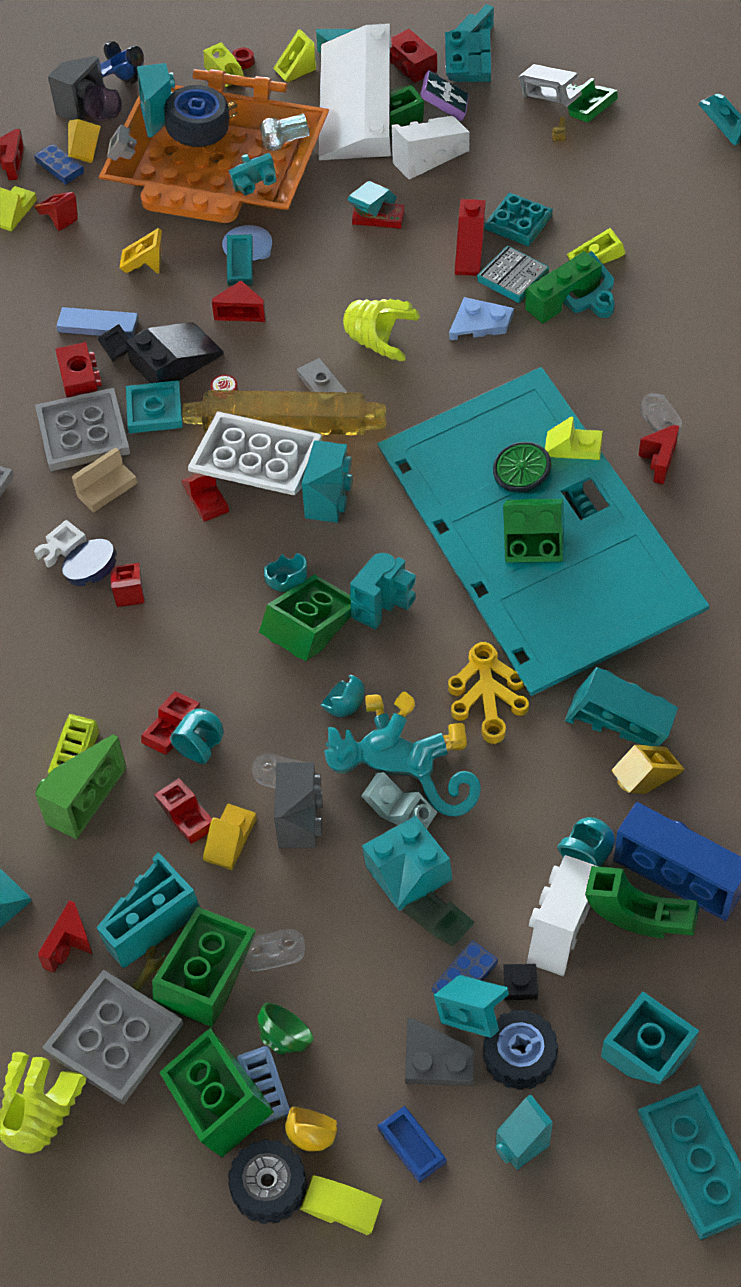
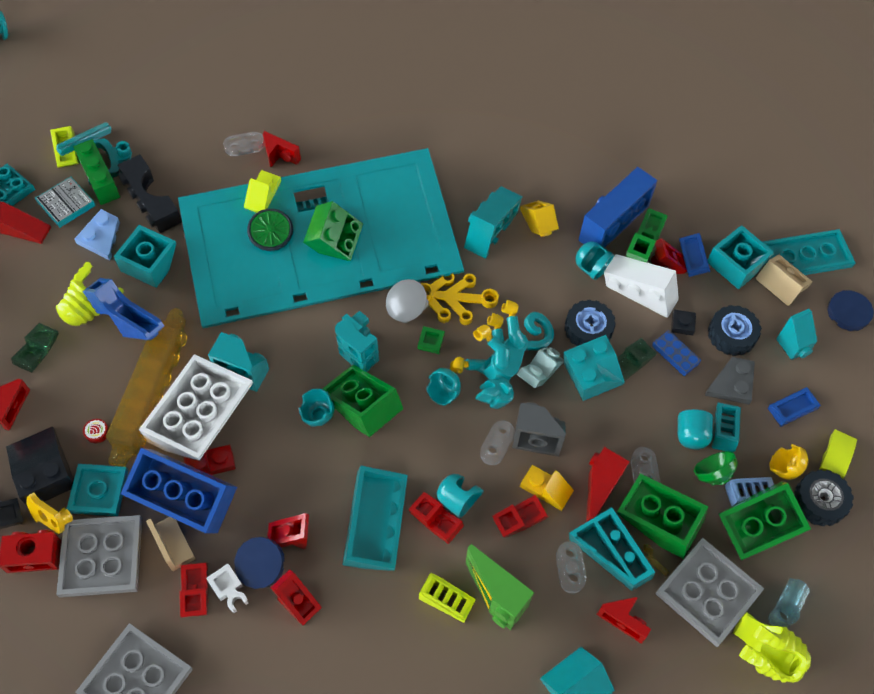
camera: 85 degrees left, 5 degrees up
(46, 517) = (194, 590): none -> red slope
(53, 602) = (295, 597): none -> red slope
(107, 1136) = (789, 603): none -> clear light blue piece
(110, 378) = (47, 515): none -> yellow piece
(126, 874) = (570, 566): none -> clear plate
(155, 468) = (179, 490): none -> blue brick
(159, 659) = (375, 519): none -> teal slope
(243, 893) = (603, 477): none -> red slope
(319, 377) = (119, 355): light grey plate -> none
(321, 310) = (37, 346): none -> clear green slope
(338, 998) = (695, 429): none -> teal helmet
(354, 363) = (128, 317): none -> blue arch
(358, 1060) = (723, 440): none -> teal slope
(411, 674) = (431, 340): none -> green plate
(451, 361) = (146, 256): none -> teal slope
(462, 635) = (406, 300): none -> light grey dish
(470, 1004) = (708, 346): teal panel -> none
(477, 872) = (586, 312): none -> black wheel
(569, 326) = (159, 209): none -> black arch
(606, 1229) = (850, 310): none -> dark blue tile
(612, 263) = (94, 133): none -> teal axle
(621, 946) = (668, 257): none -> red slope
(634, 1117) = (783, 279): none -> tan panel
(656, 982) = (694, 254): none -> blue tile

